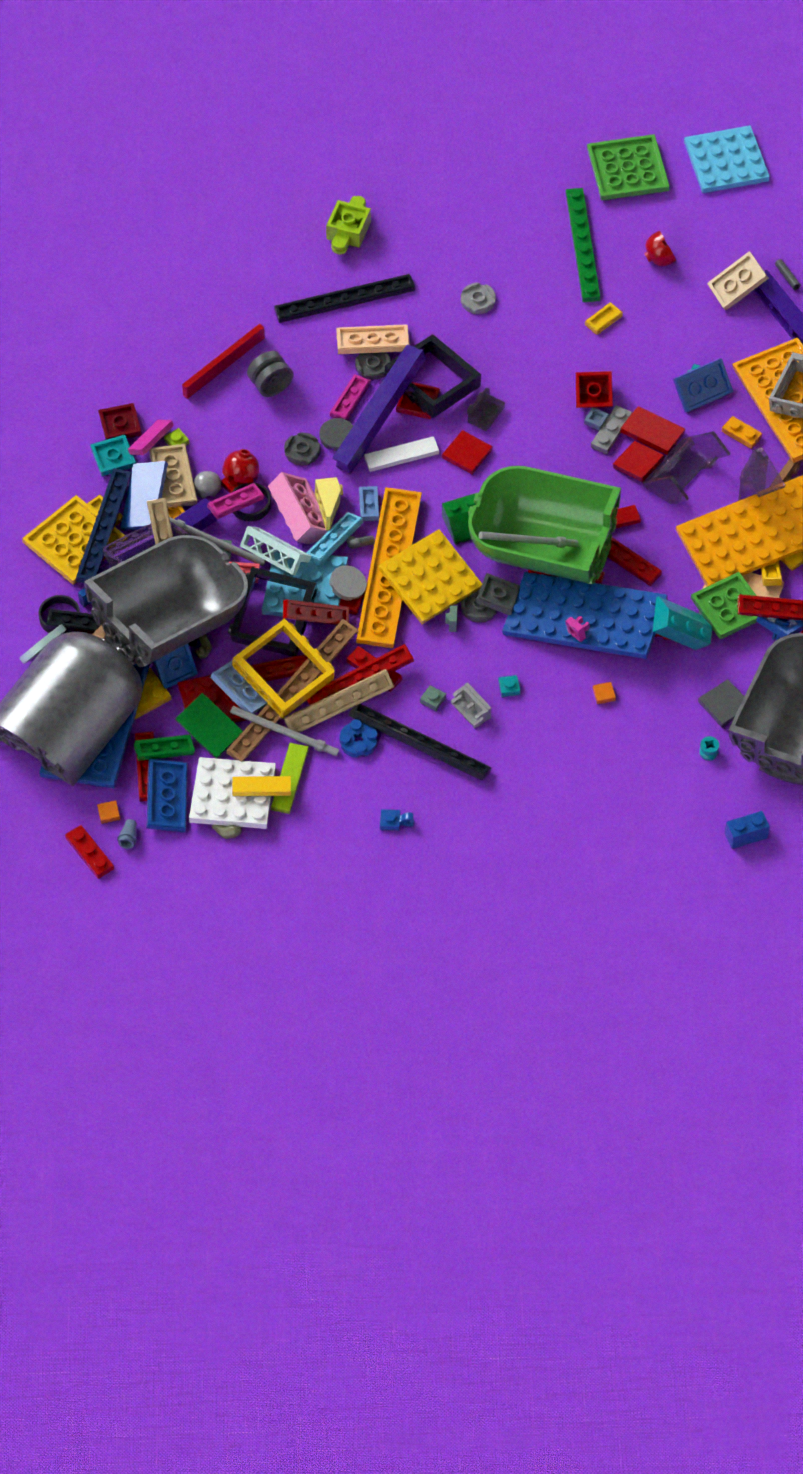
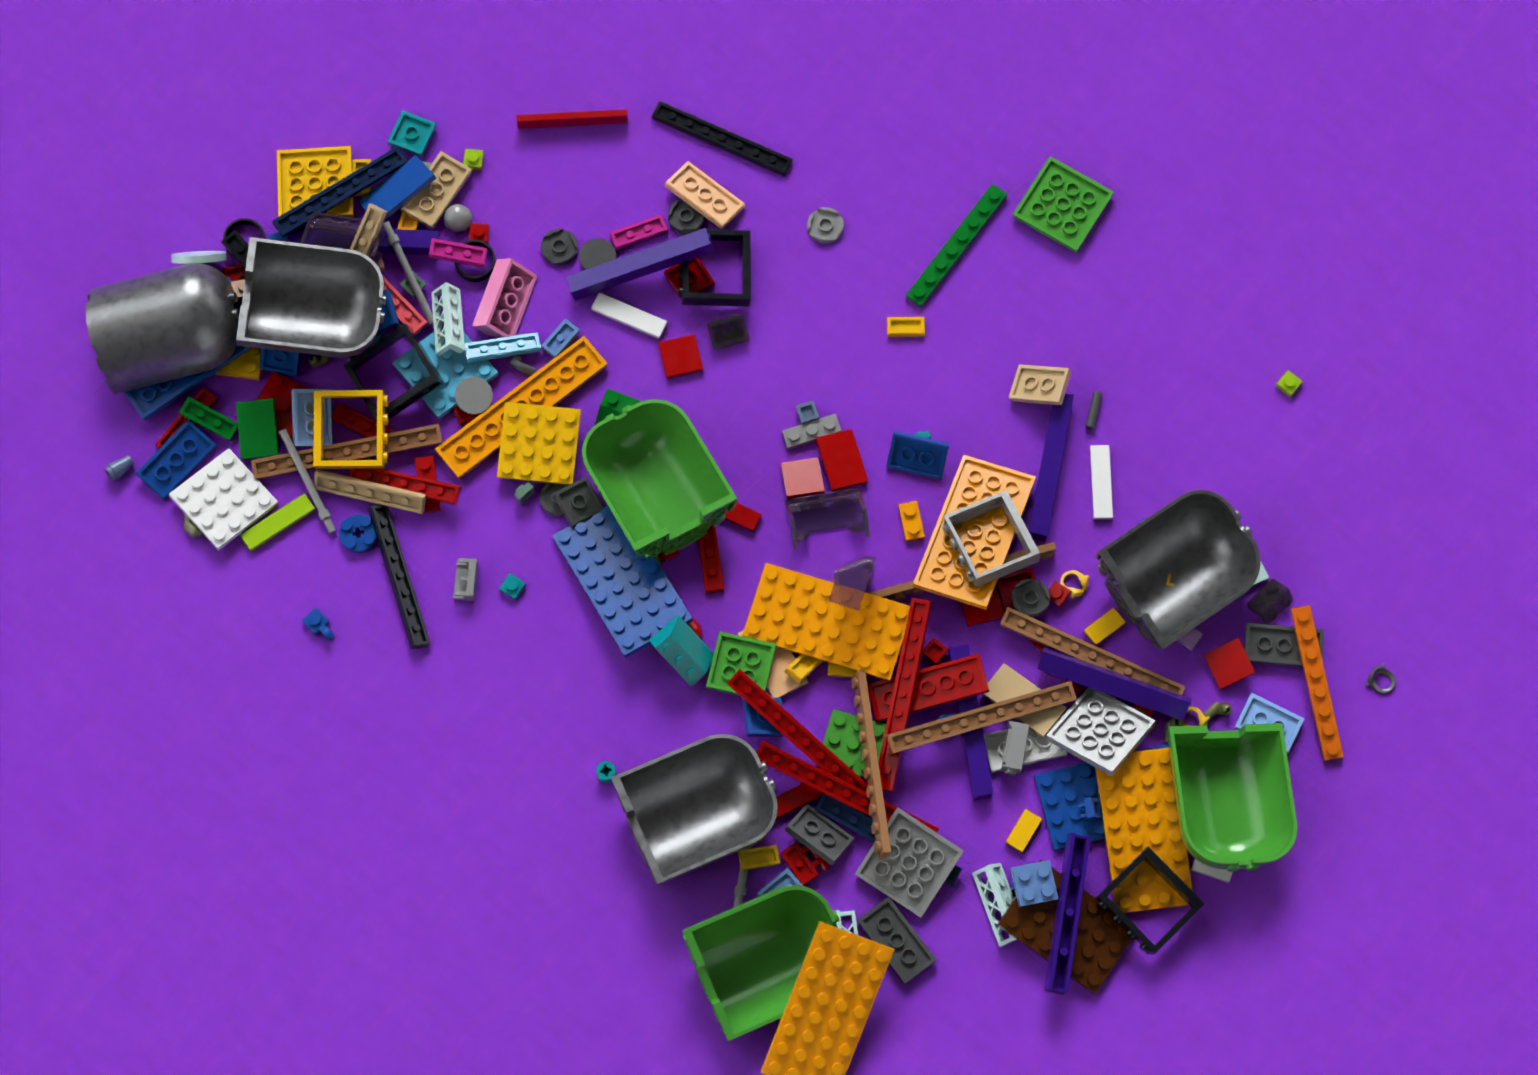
camera: 40 degrees right, 15 degrees up
(89, 851) = (80, 457): red plate -> none
(108, 812) = (124, 436): orange tile -> none
(120, 421) = (444, 108): dark red plate -> none
(150, 437) = (451, 142): dark pink tile -> none
(241, 466) = (491, 226): red cylinder -> none
(261, 786) = (243, 513): yellow tile -> none
(270, 373) = (590, 162): dark grey wheel -> none
(314, 612) = (419, 402): red tile -> none
(328, 498) = (530, 311): light yellow slope -> none
(348, 224) = (784, 75): lime brick -> none
(432, 698) = (446, 547): sand green plate -> none
(559, 542) = (663, 498): light grey bar -> none
(576, 629) = (594, 586): dark pink tile -> none
(594, 389) = (827, 387): red slope -> none
(604, 693) = (576, 655): orange tile -> none
(658, 250) = (1007, 303): red cylinder -> none
(722, 702) = (657, 741): dark grey tile -> none
(726, 159) = (1153, 262): medium azure plate -> none
(747, 829) = (562, 865): blue brick -> none

